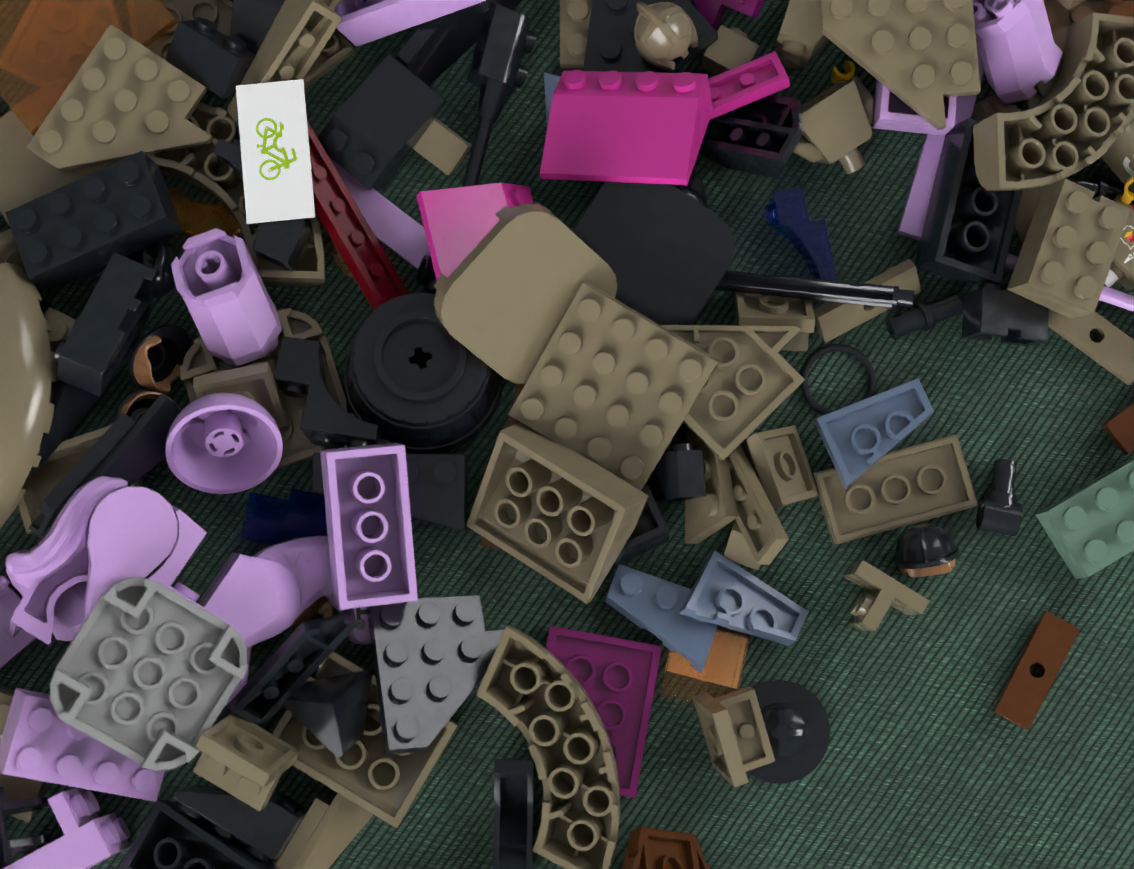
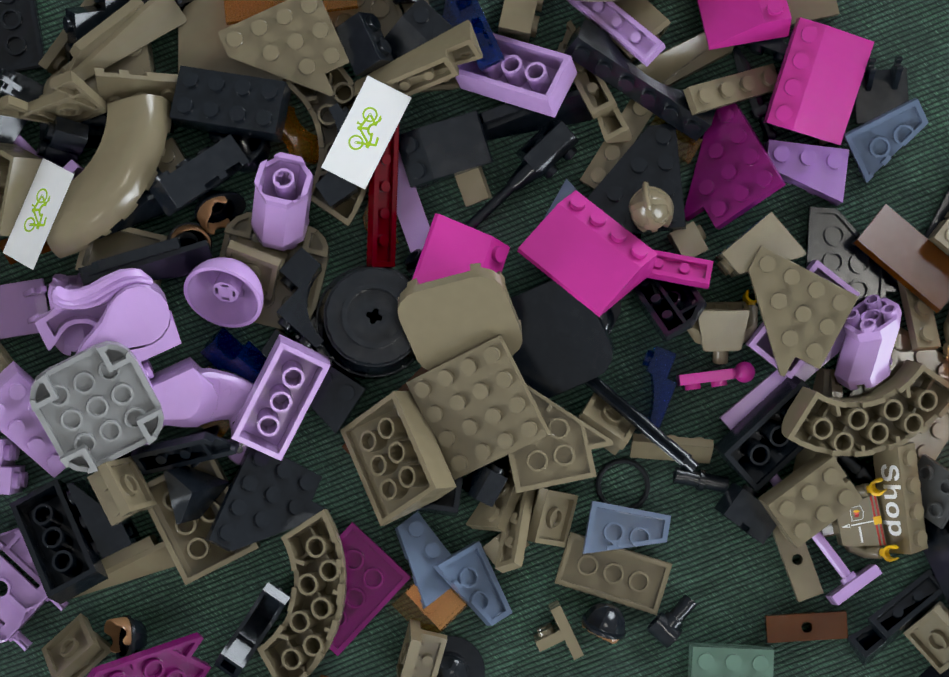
camera: 30 degrees right, 5 degrees up
(890, 162) = (743, 372): none -> dark pink plate

